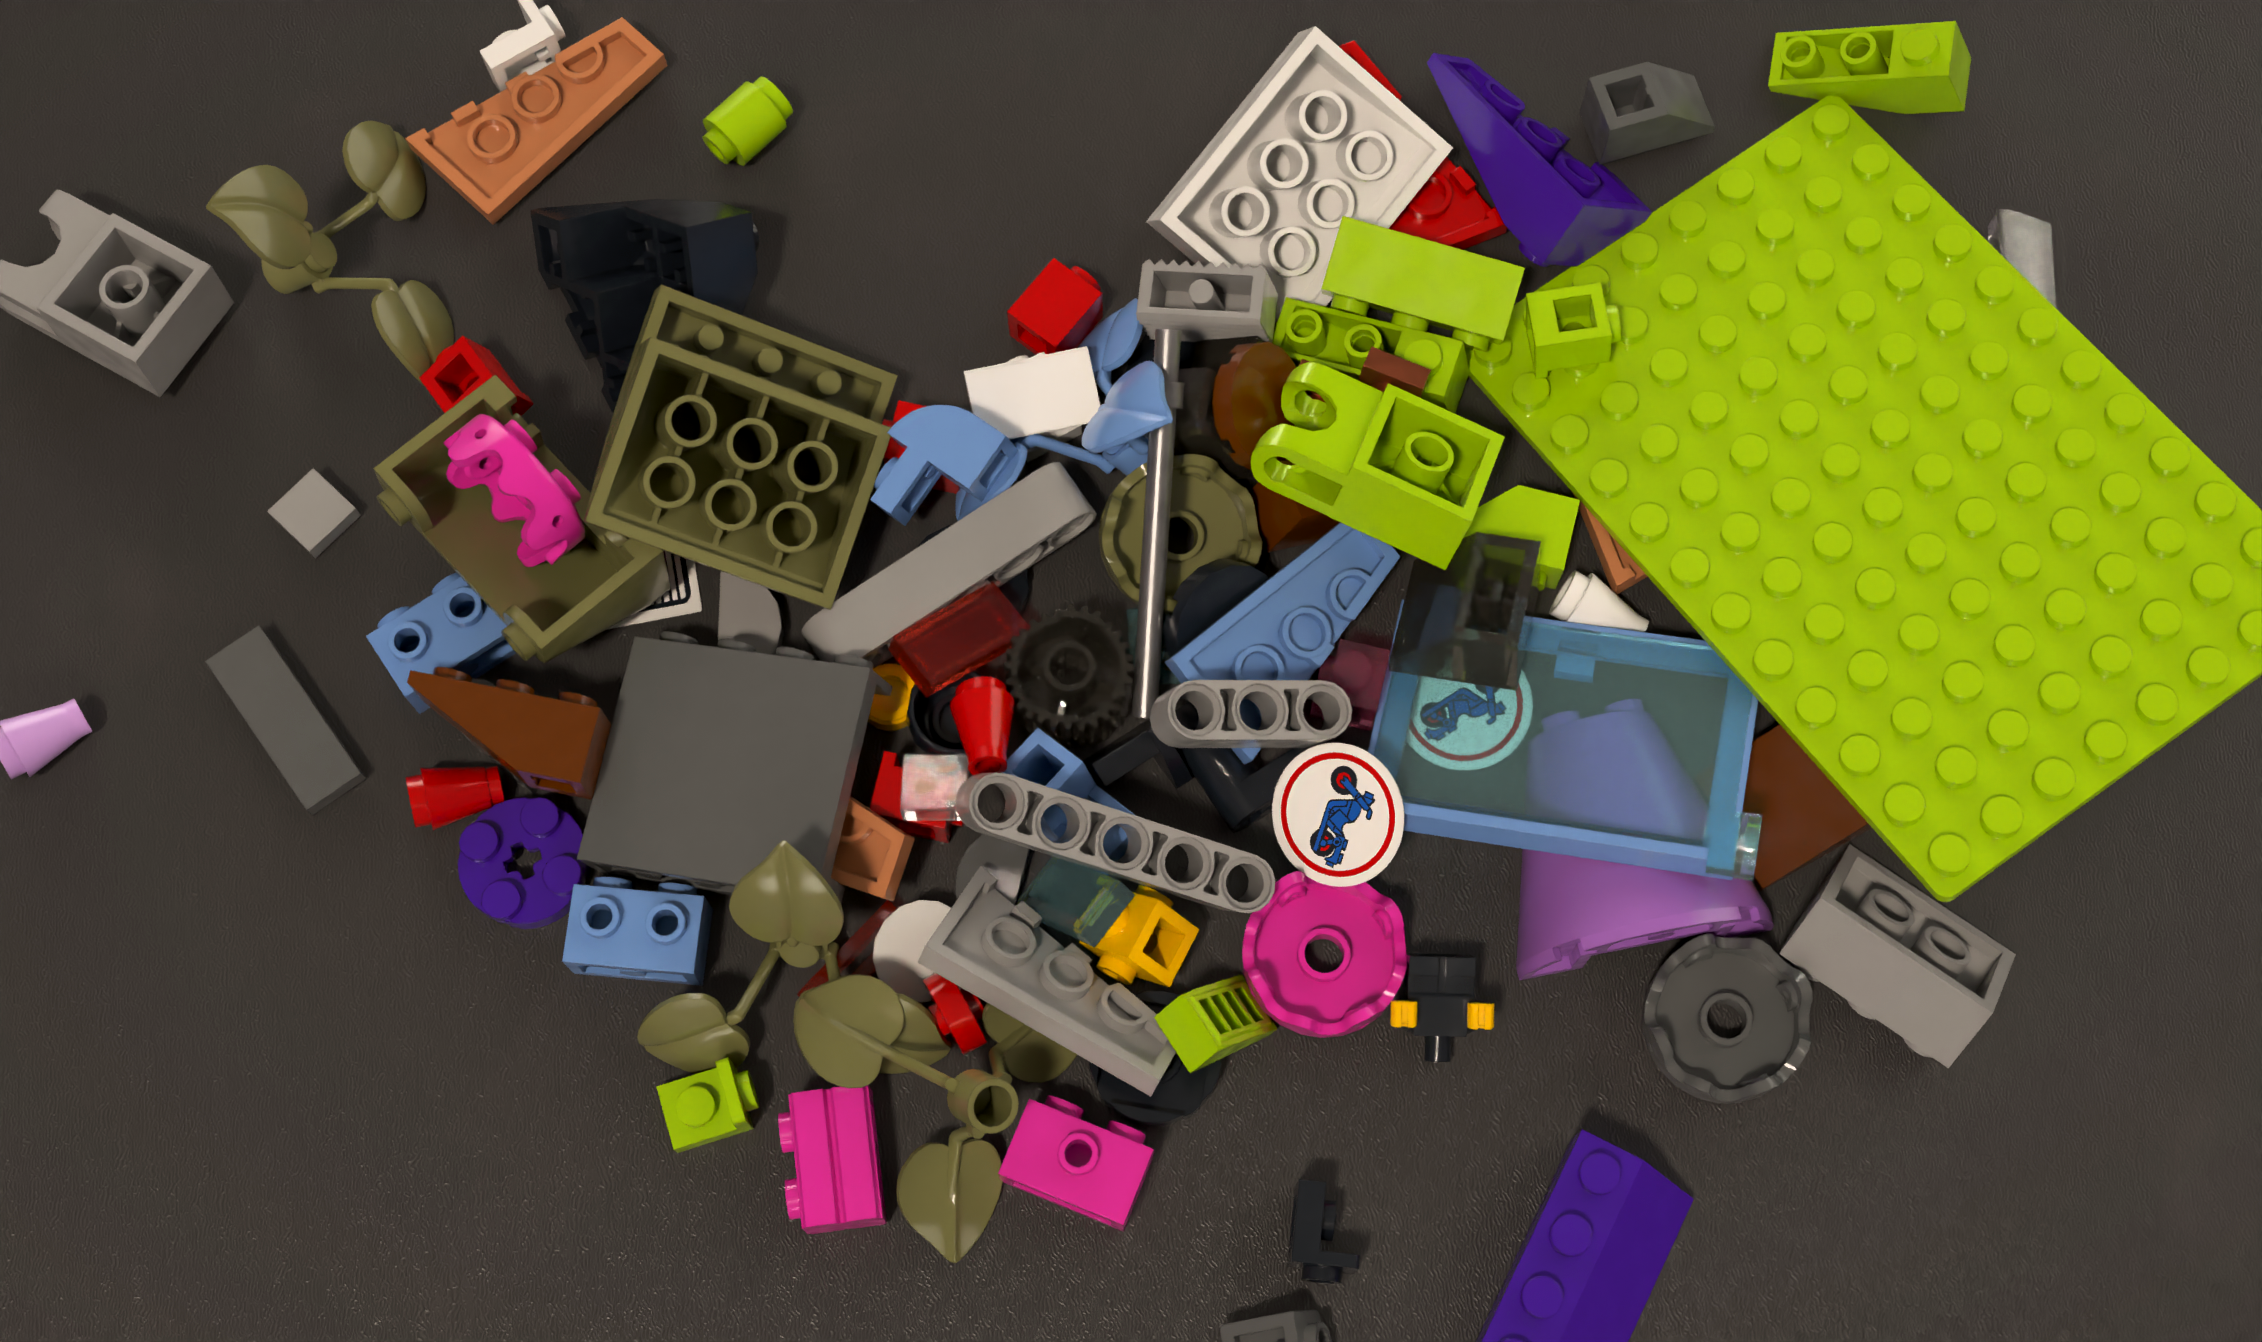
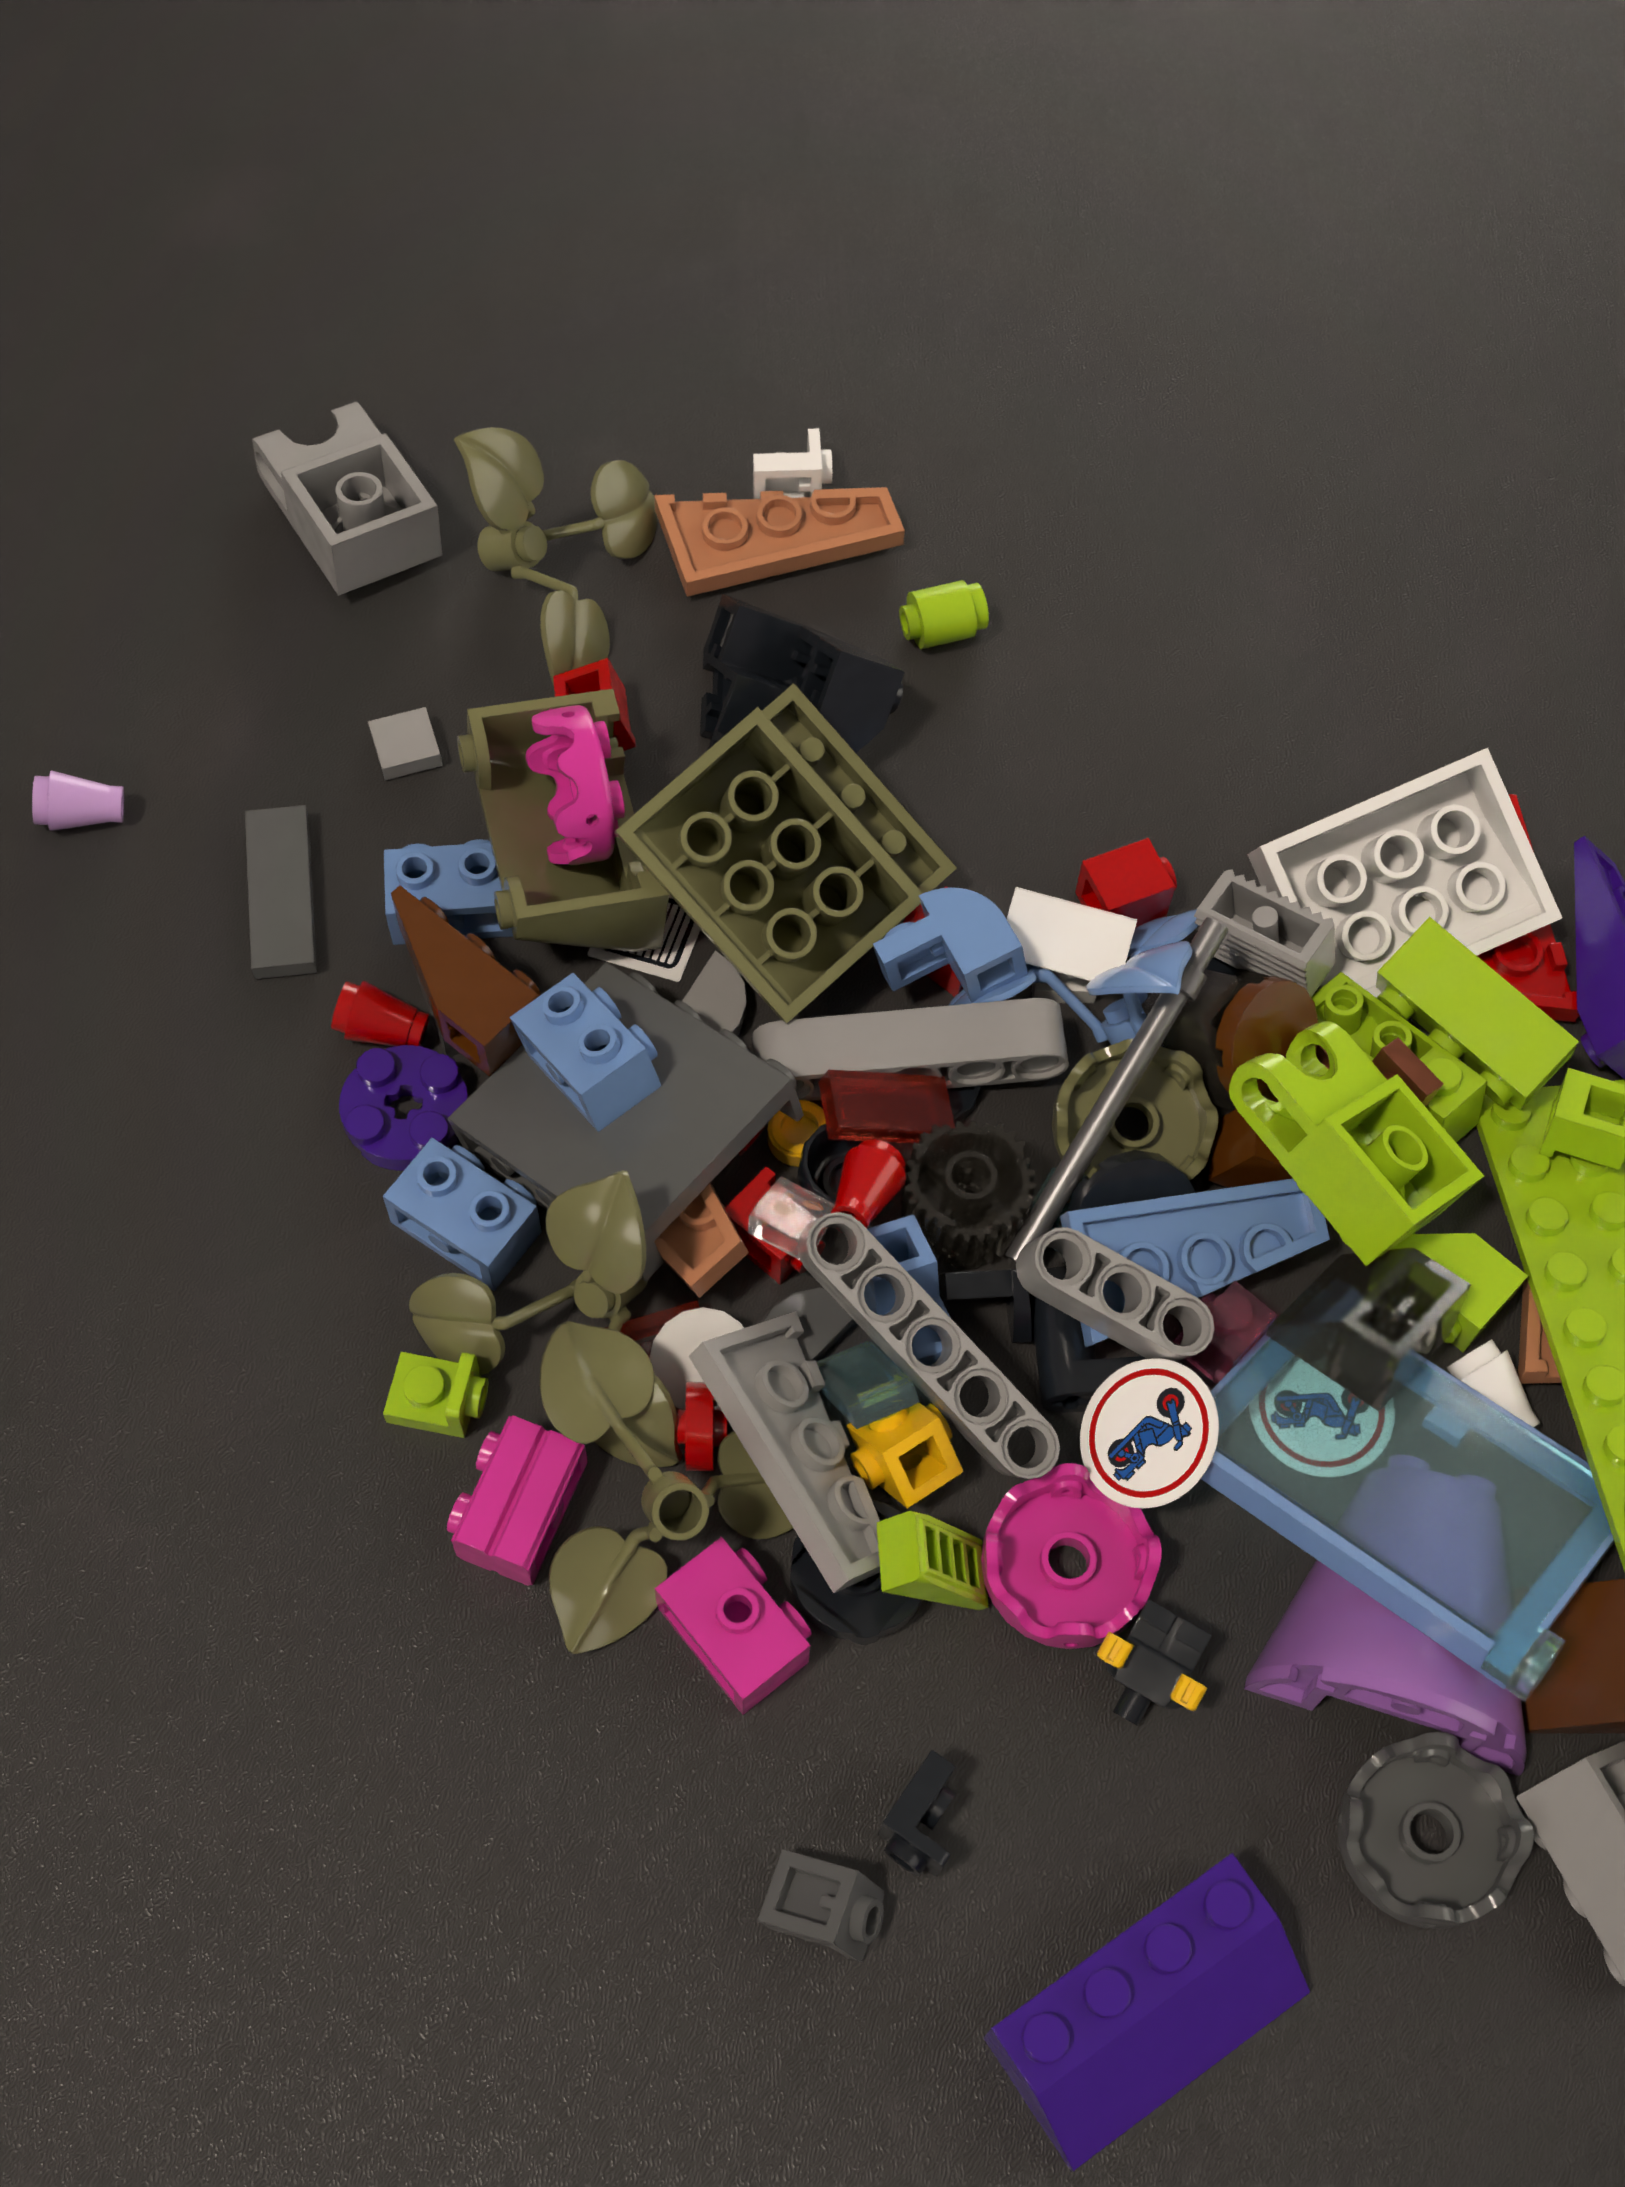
camera: 25 degrees right, 10 degrees down
(673, 736) = (587, 1050): none -> medium blue brick

